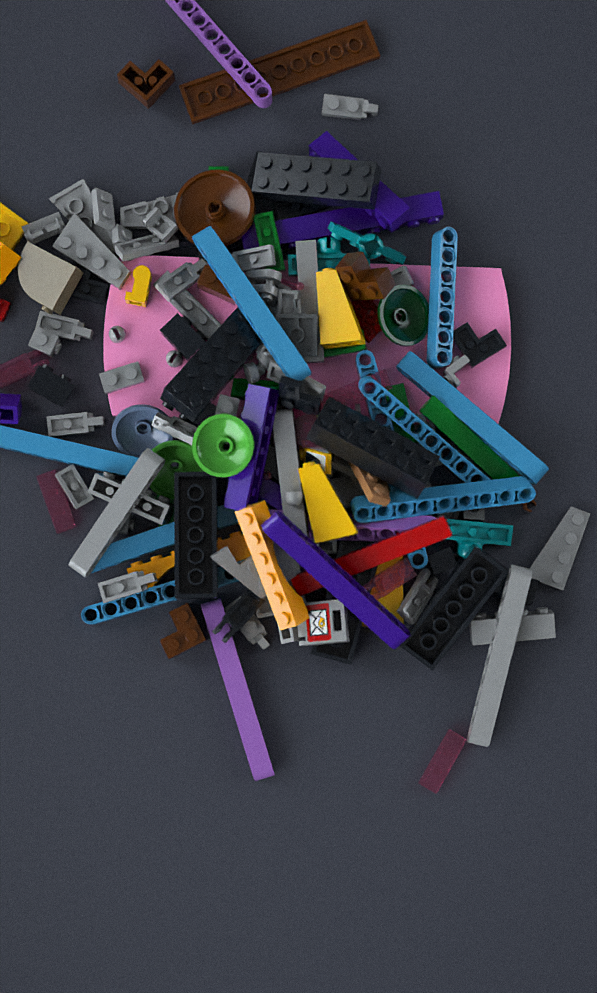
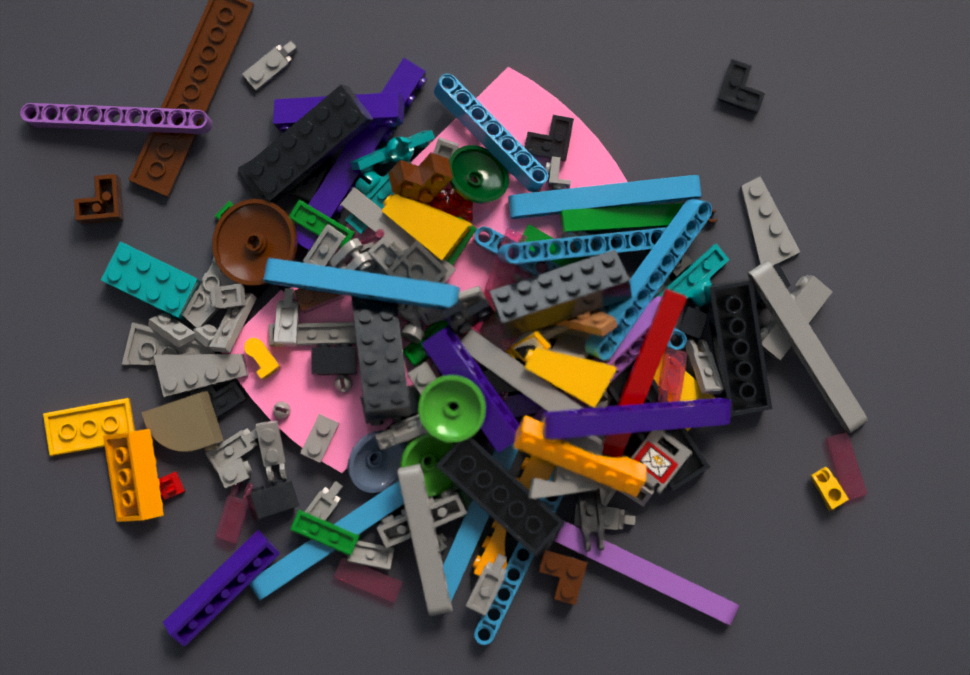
camera: 45 degrees left, 0 degrees up
(43, 228) = (141, 389): light grey hinge -> none
(60, 441) = (325, 532): none -> green tile
(84, 352) = (271, 448): none -> light grey hinge
(123, 164) = (150, 280): none -> teal brick
(293, 498) = (545, 392): light grey hinge -> none
(414, 763) = (829, 488): none -> yellow leg

